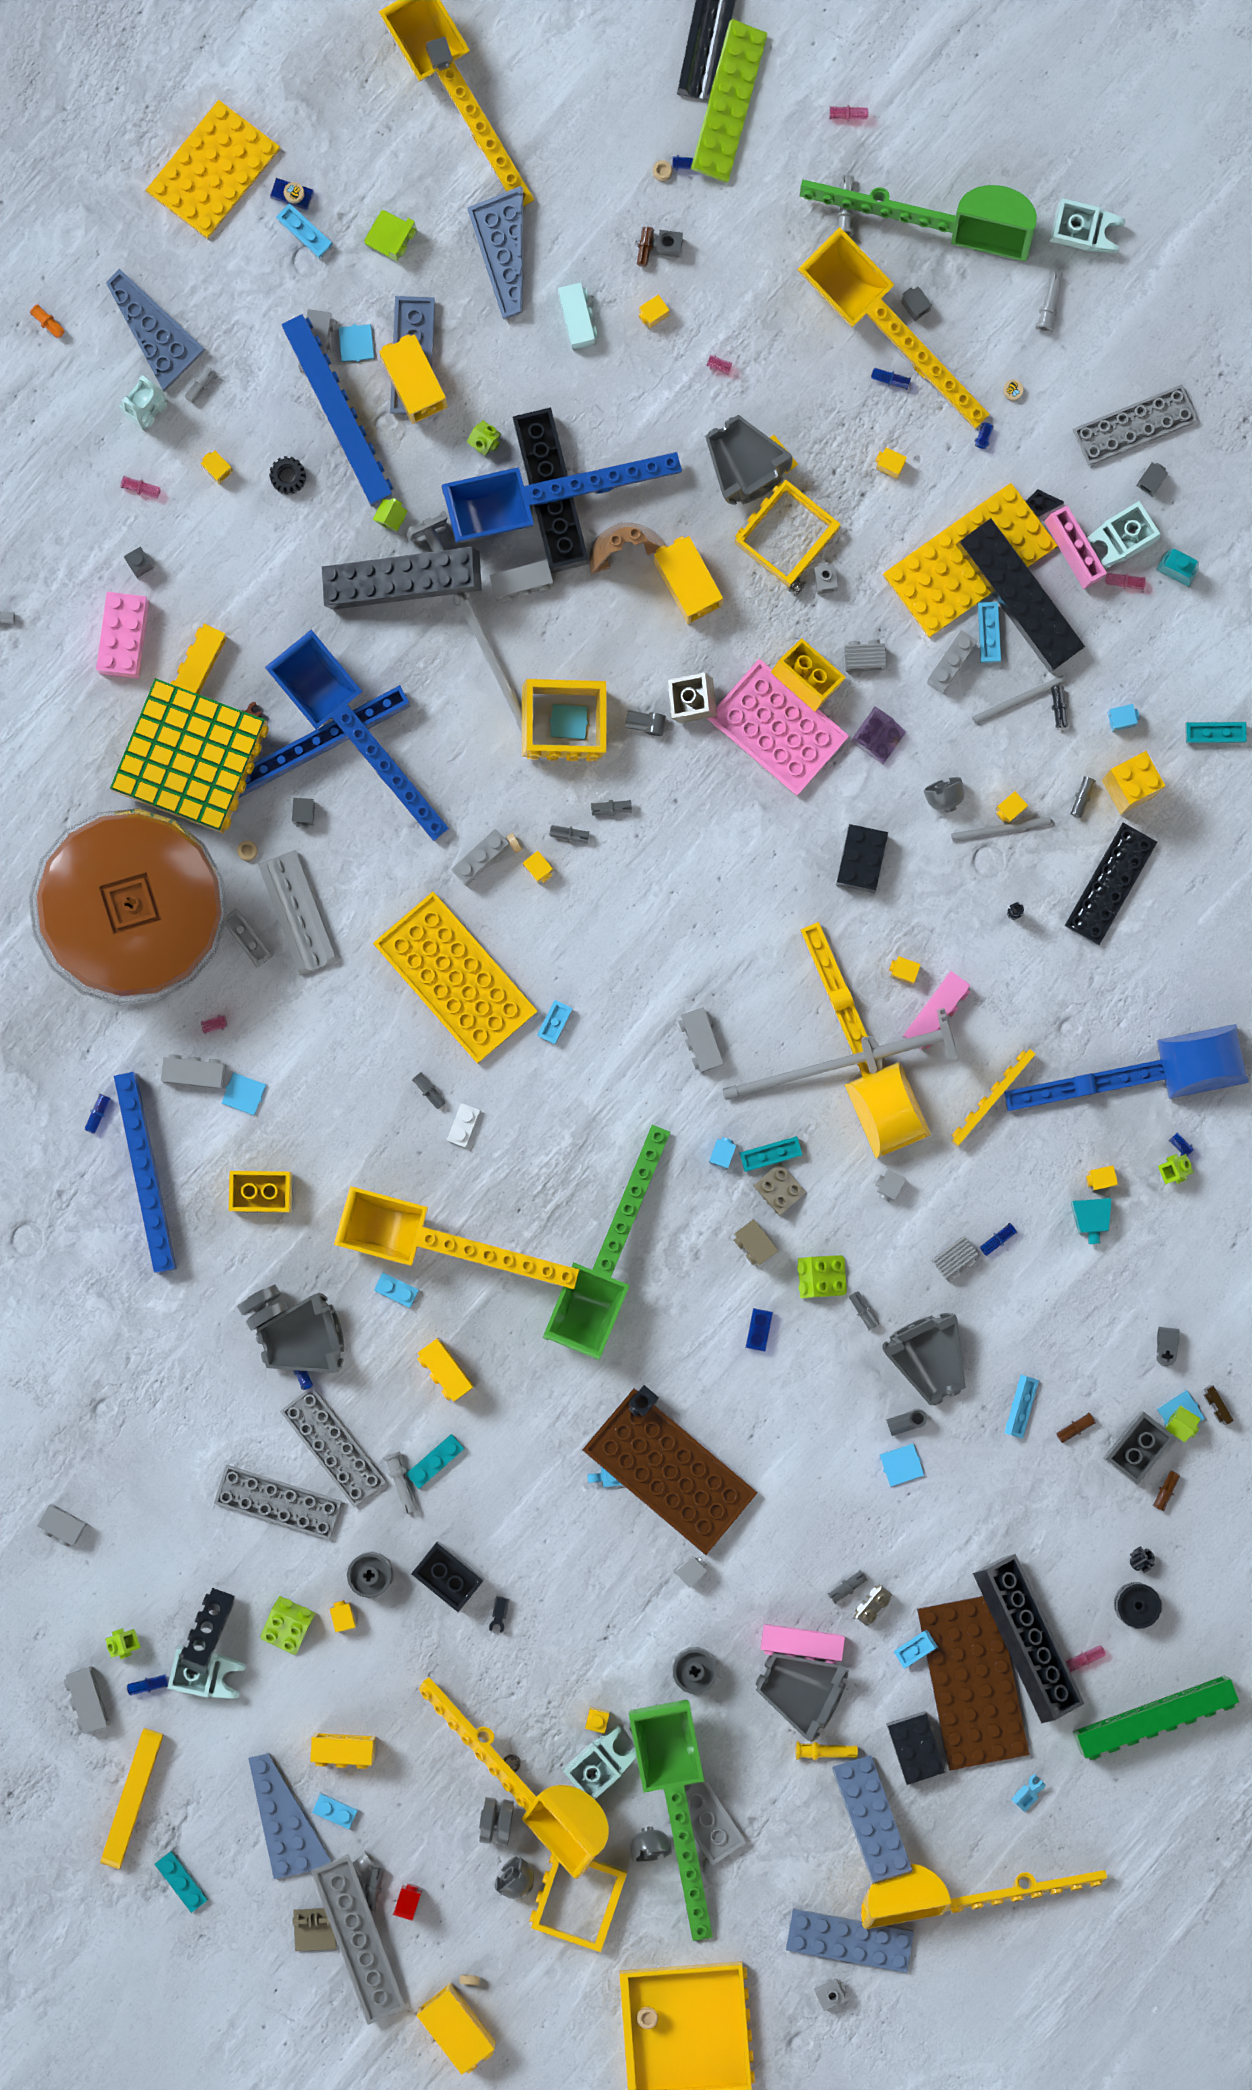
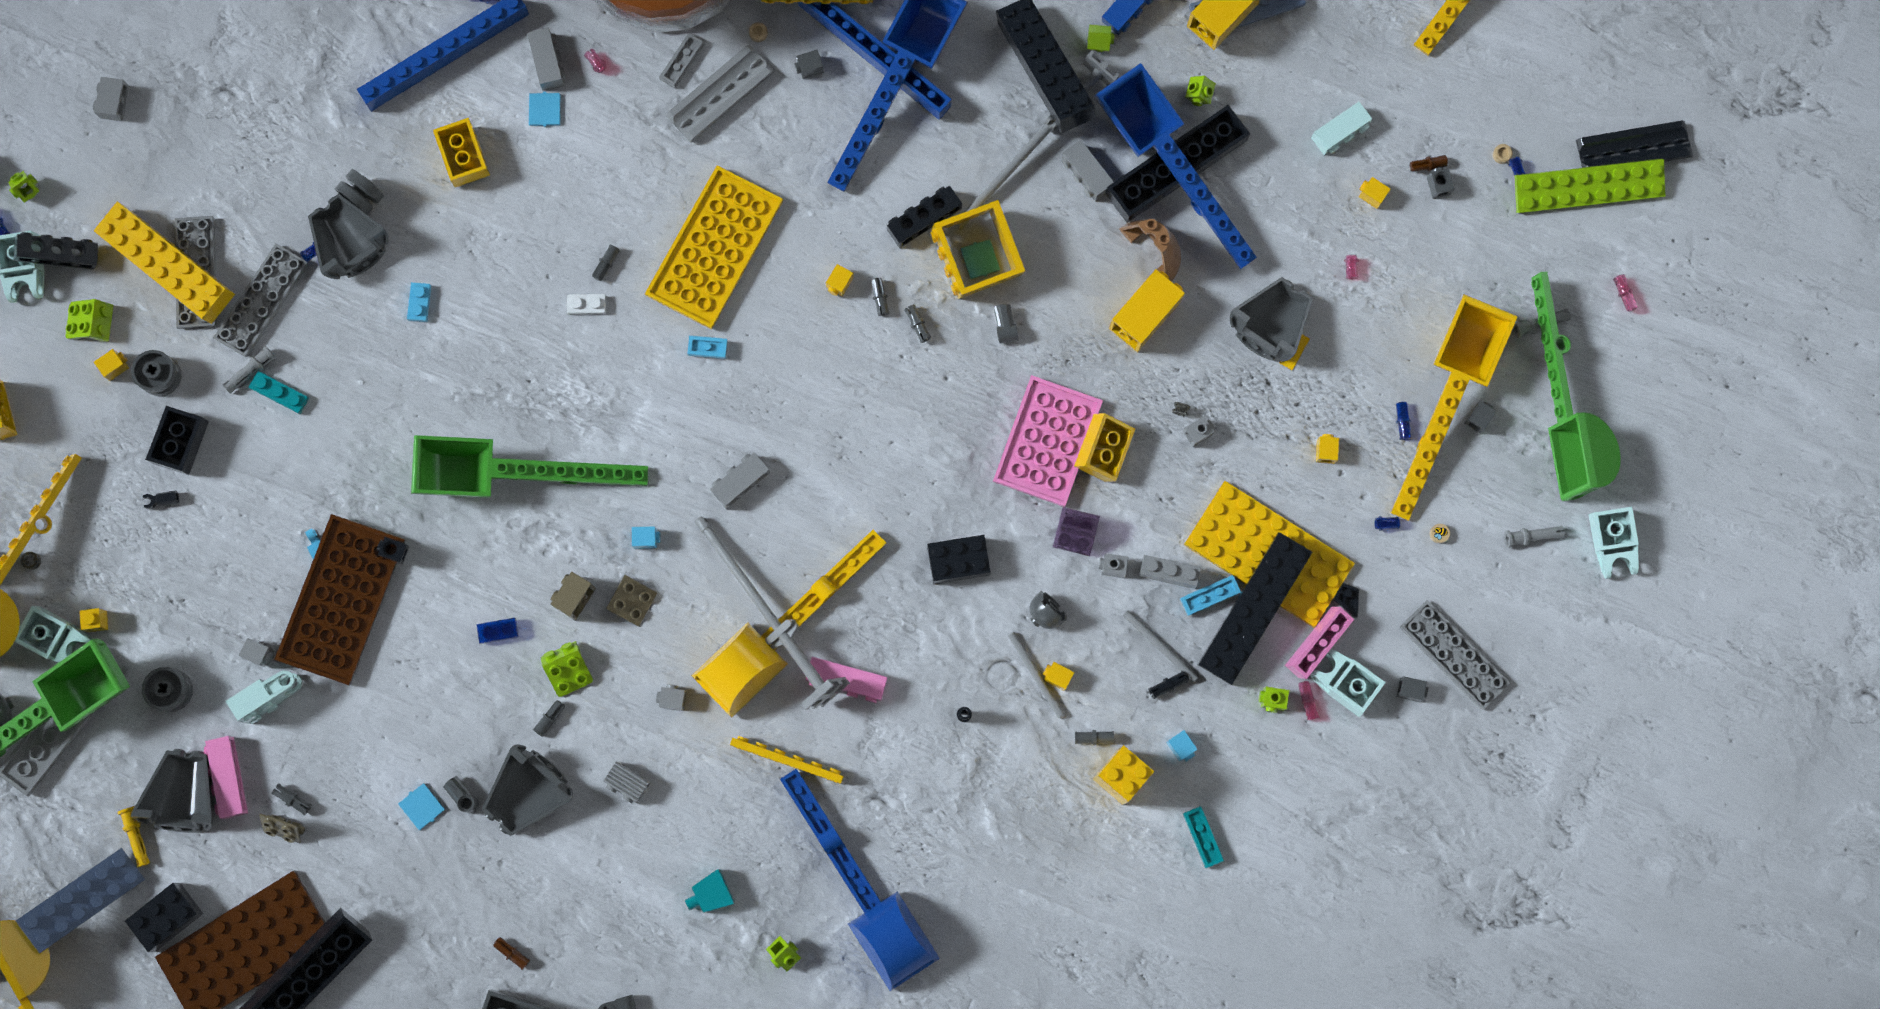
camera: 60 degrees right, 5 degrees down
(260, 1527) = (164, 262): none -> yellow brick
(395, 1231) = (463, 275): yellow plate -> none
(445, 1370) = (359, 368): yellow brick -> none
(480, 857) = (828, 227): light grey brick -> none
(500, 239) = (1381, 38): sand blue wing -> none
(503, 728) = (903, 235): none -> black brick
(514, 843) = (853, 252): tan tile -> none
(692, 698) = (1042, 354): dark tan brick -> none
(739, 1579) = (263, 696): none -> light aqua brick
(767, 504) = (1239, 355): yellow window -> none
(770, 1154) = (660, 580): teal plate -> none
(865, 656) = (1142, 492): light grey brick -> none
(904, 969) = (872, 636): yellow brick -> none
(915, 1649) = (254, 882): medium azure plate -> none
(925, 712) = (1113, 565): none -> light grey brick
(998, 1239) = (658, 815): clear blue axle -> none
(1021, 1406) = (512, 895): medium azure plate -> none
(1101, 1178) = (750, 888): yellow brick -> none
(1110, 883) = (1025, 794): black plate -> none
(1112, 612) = (1274, 699): none -> lime brick
(1178, 566) = (1341, 744): teal torso -> none
(1181, 1145) = (809, 951): clear blue pin -> none

